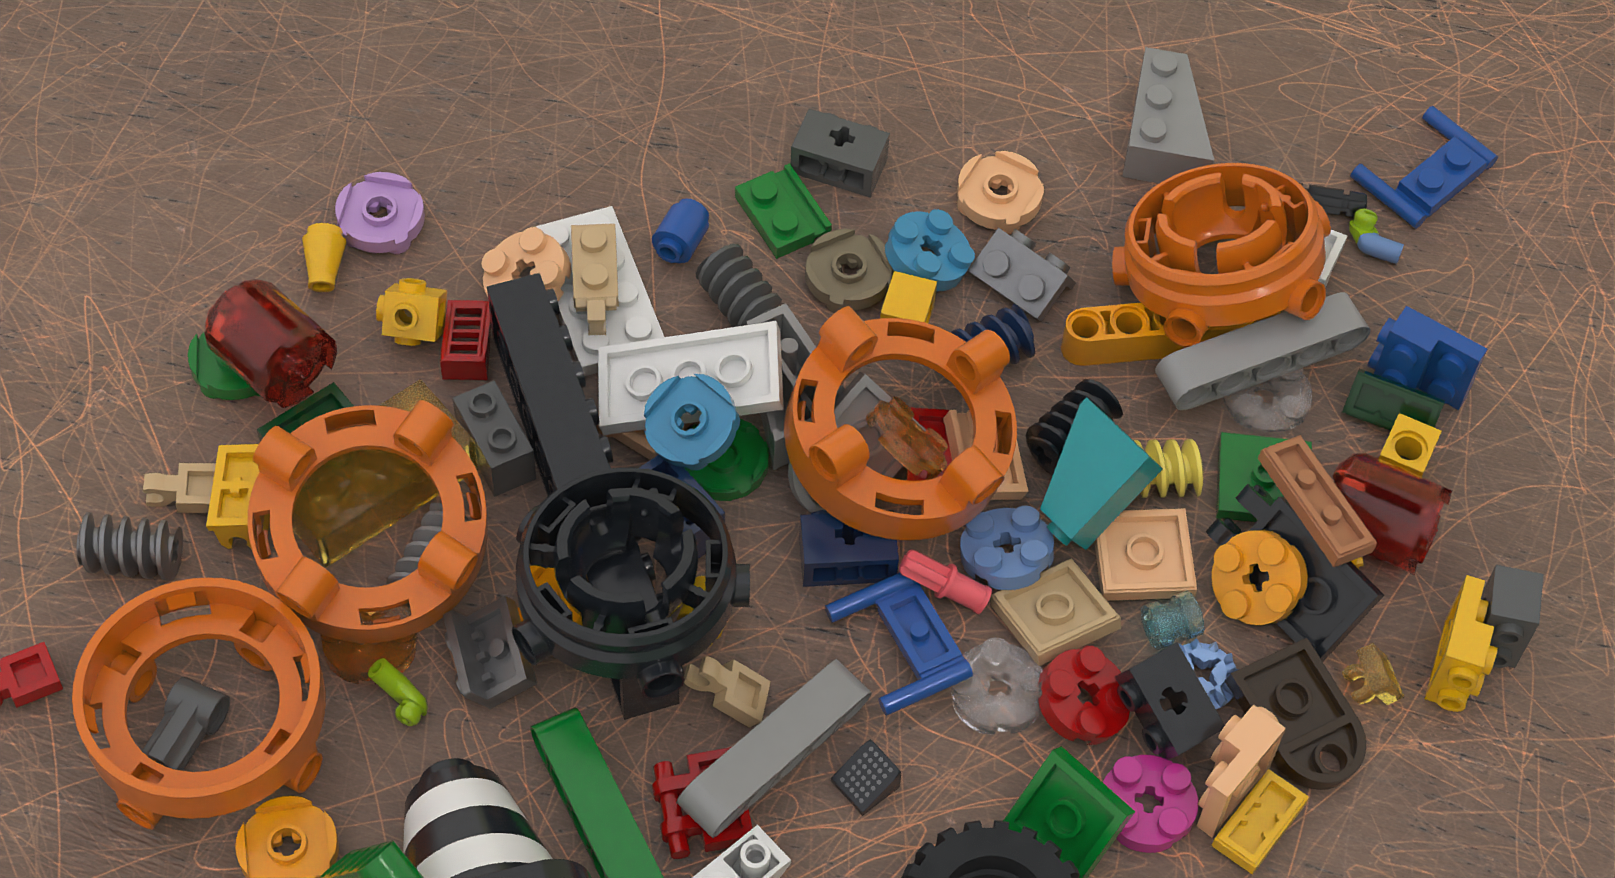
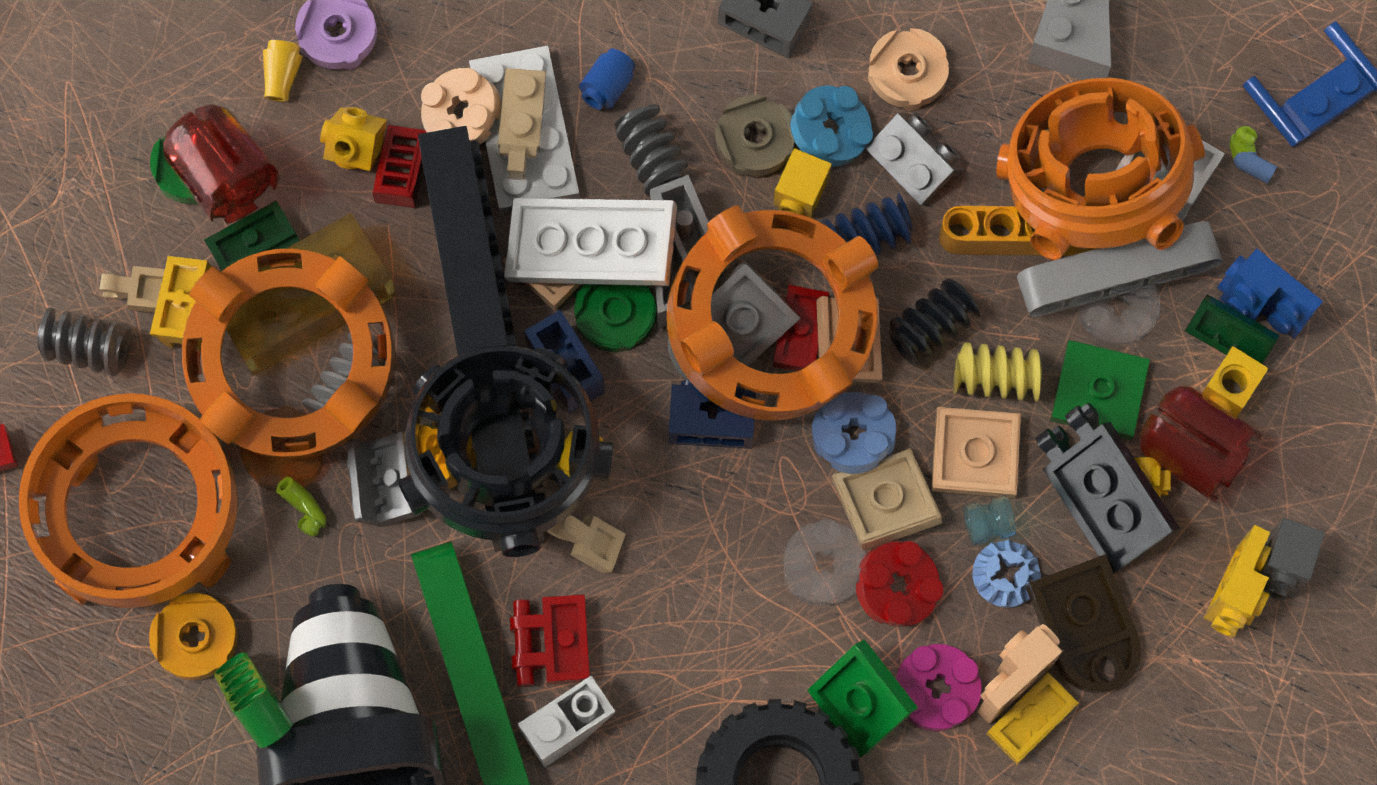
camera: 10 degrees right, 15 degrees up
(189, 715) = (122, 506): dark grey piece -> none
(499, 441) = (412, 272): dark grey brick -> none
(695, 446) = (559, 289): dark azure plate -> none
(773, 748) = (617, 602): light grey beam -> none
(782, 211) = (704, 65): green plate -> none
(867, 777) = (695, 635): black slope -> none
(907, 440) = (774, 331): clear orange plate -> none
(917, 633) = (760, 505): blue plate -> none
(945, 581) = (792, 460): coral axle -> none
(1094, 477) = (941, 380): teal slope -> none
(1192, 712) = (986, 621): black brick -> none
(1232, 584) = (1052, 501): light orange plate -> none
(1317, 501) = (1135, 433): nougat tile -> none
(1335, 200) = (1211, 109): black axle -> none
(1378, 676) = (1164, 595): clear yellow tile -> none

